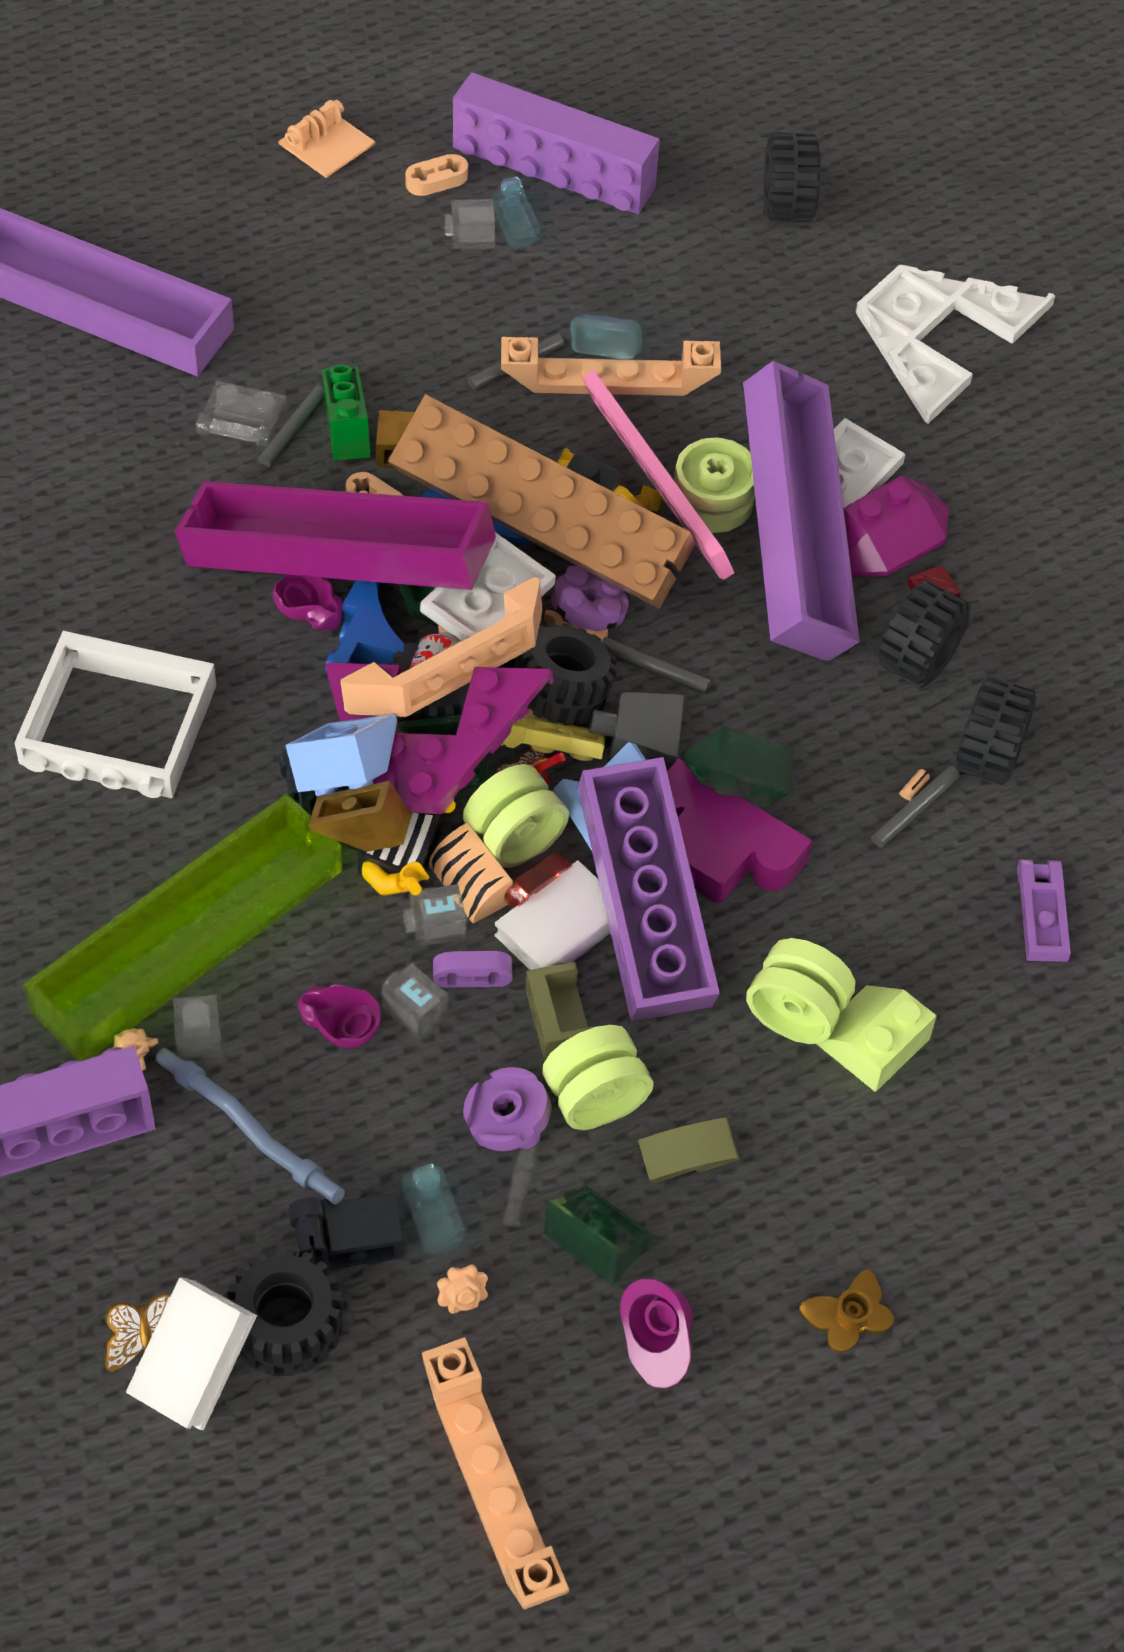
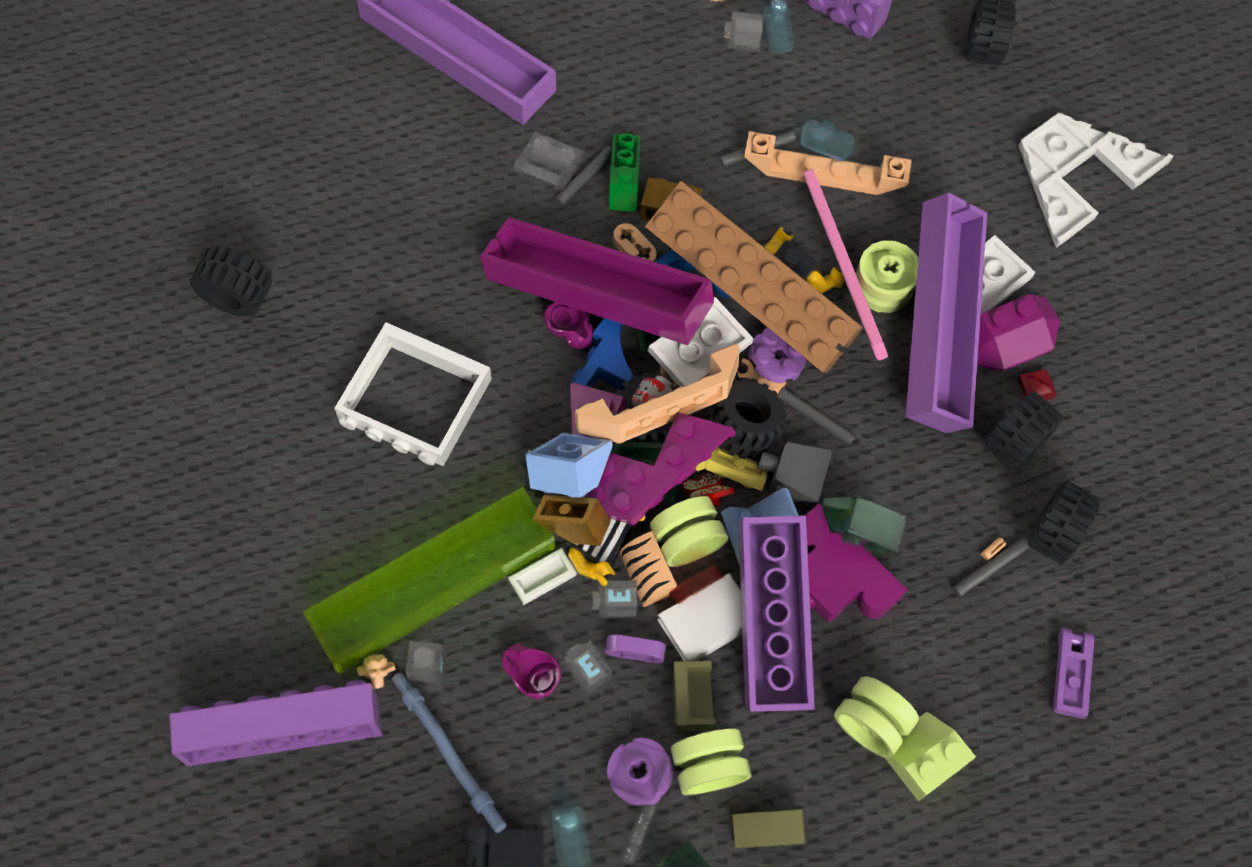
camera: 10 degrees right, 10 degrees up
(332, 906) = (542, 576): none -> white tile

